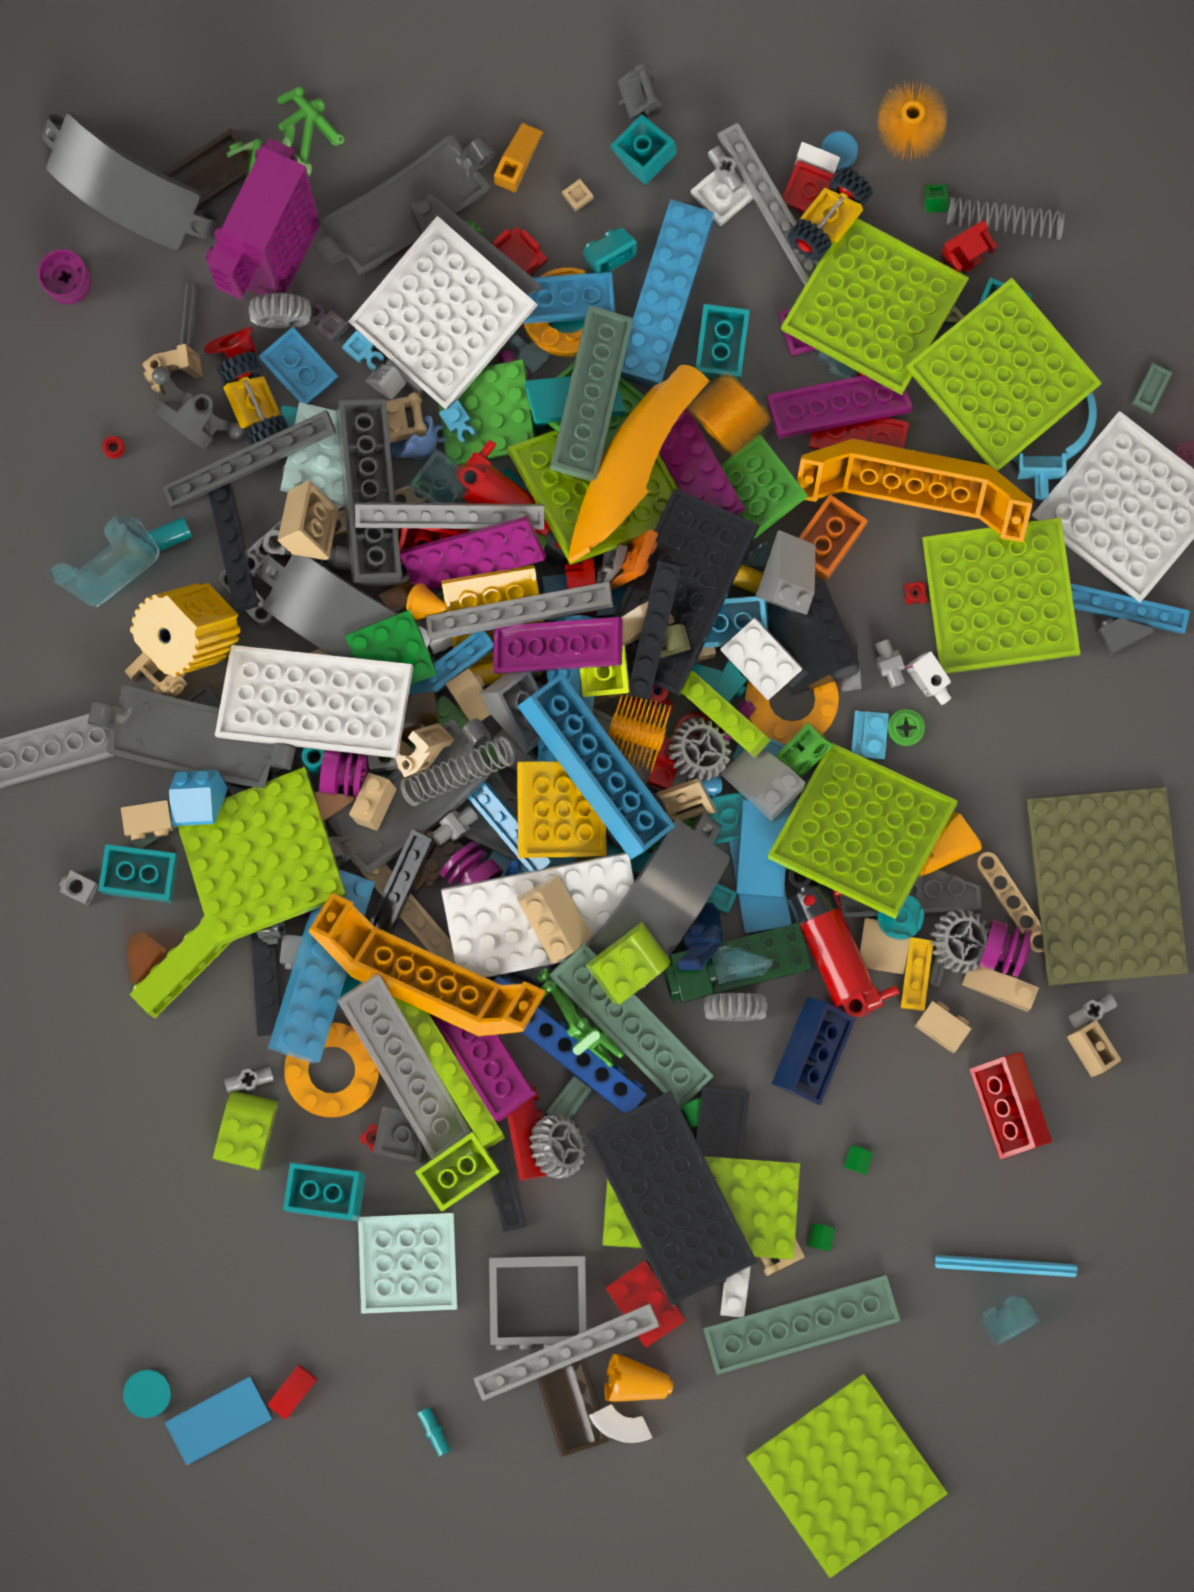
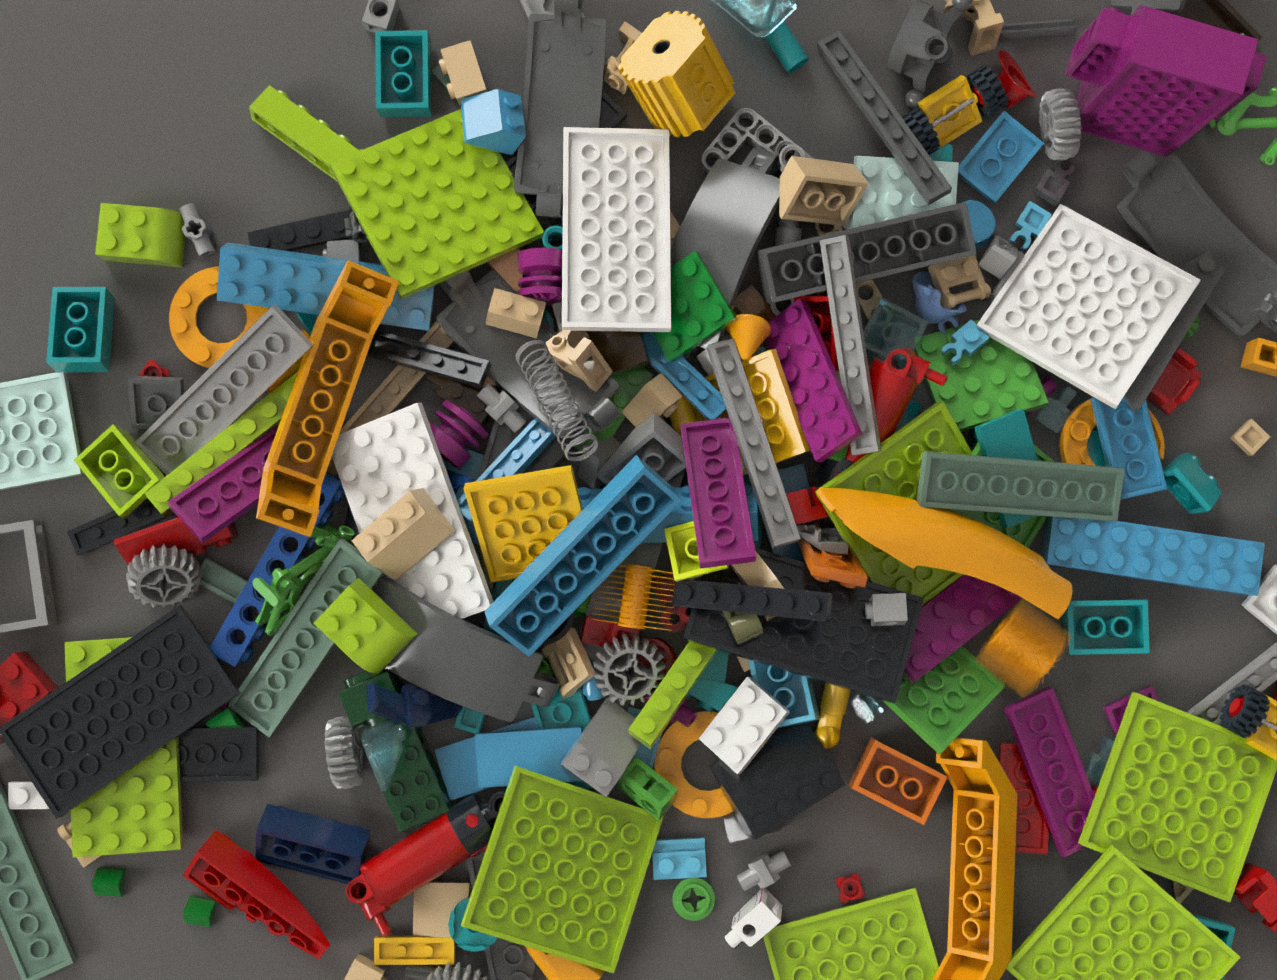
camera: 80 degrees right, 5 degrees up
(142, 955) = (316, 94): clear orange slope -> none
(233, 548) = (779, 116): black plate -> none
(352, 390) = (981, 222): none -> dark azure piece
(679, 519) = (887, 609): none -> light grey brick
(789, 574) = (845, 745): light grey slope -> none
(838, 1115) = (244, 883): none -> red wedge

